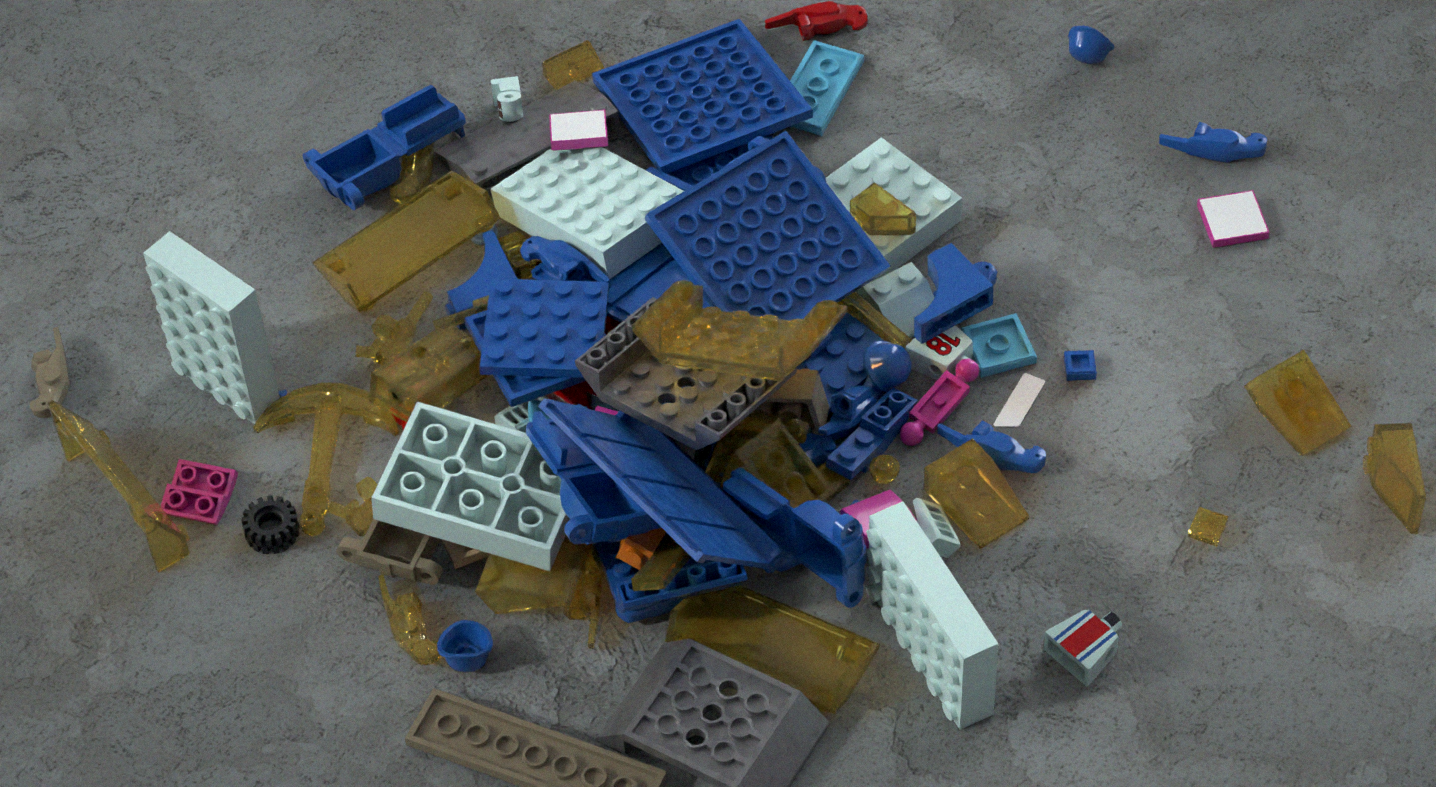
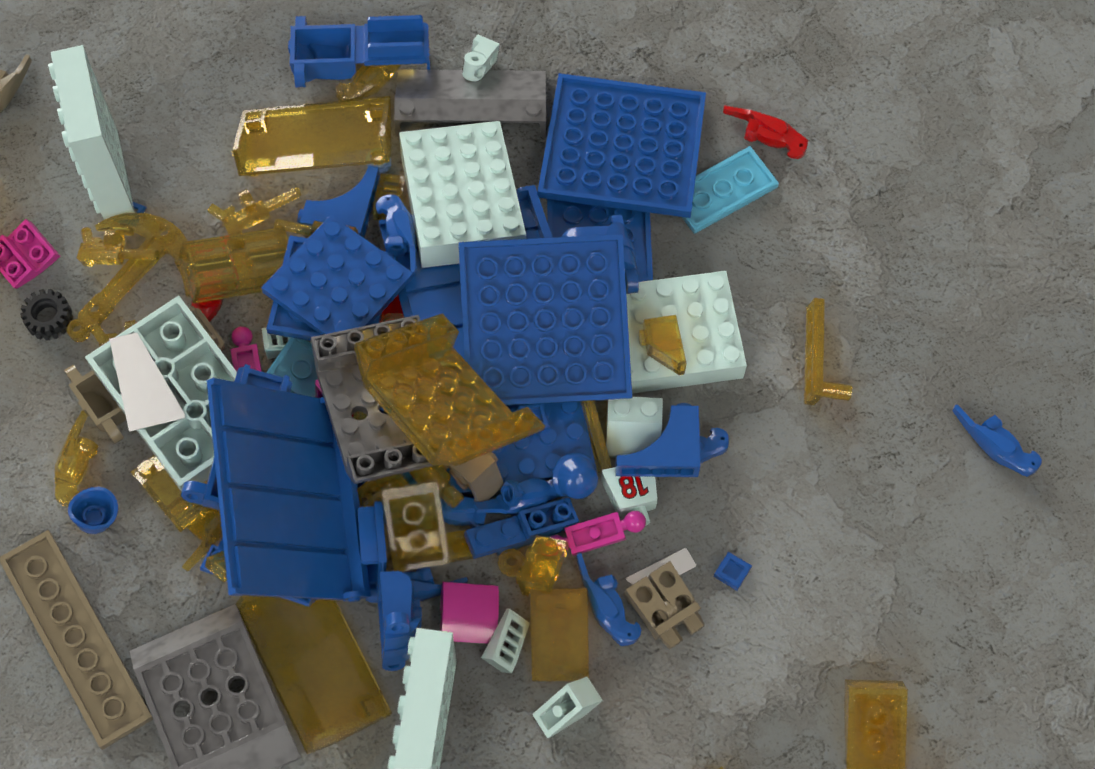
camera: 30 degrees right, 15 degrees up
(290, 438) = (112, 249): none -> clear yellow piece
(447, 491) = (142, 386): none -> white sticker
(571, 65) = (551, 57): clear yellow slope -> none
(578, 130) = (497, 122): white tile -> none
(917, 445) = (541, 564): none -> clear yellow bracket
(1000, 345) = (683, 510): medium azure tile -> none
(1011, 166) = (814, 358): none -> clear yellow piece
(1030, 543) = (567, 706): none -> light aqua slope
(1047, 417) = (664, 604): none -> dark tan hips
(1088, 45) = (960, 287): blue helmet -> none
(1233, 218) = (958, 518): white tile -> none

